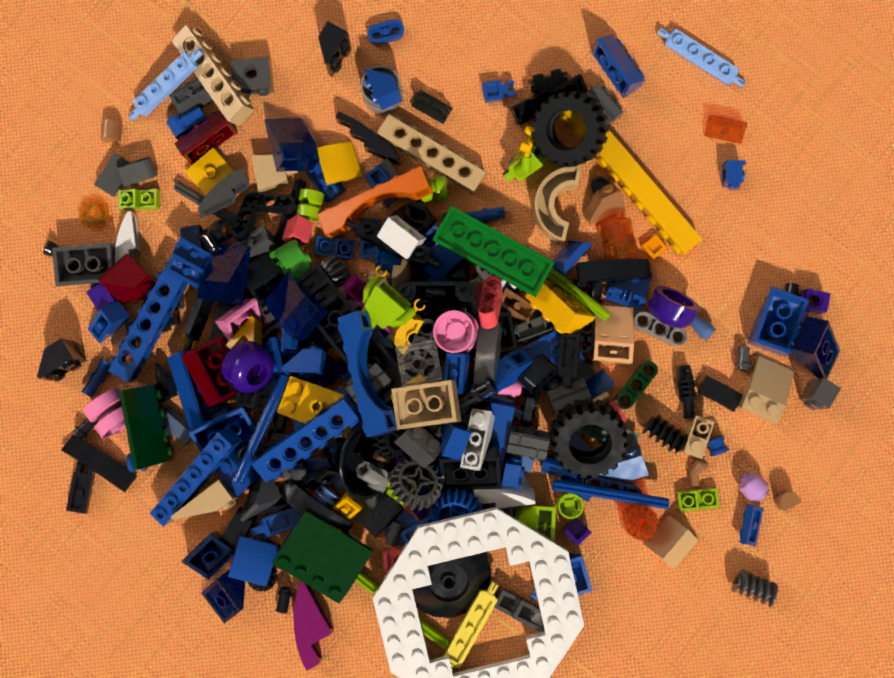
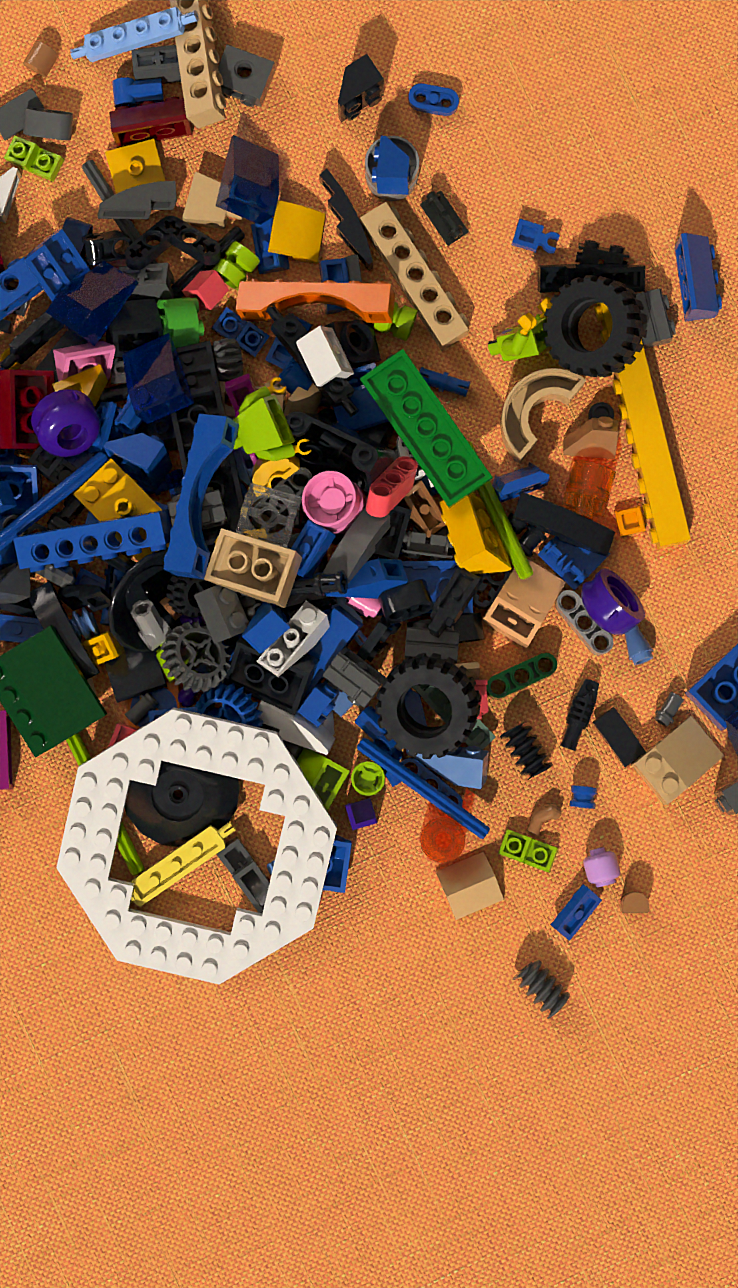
camera: 25 degrees right, 0 degrees up
(599, 383) = (477, 651): blue slope -> none
(697, 437) = (563, 774): tan slope -> none

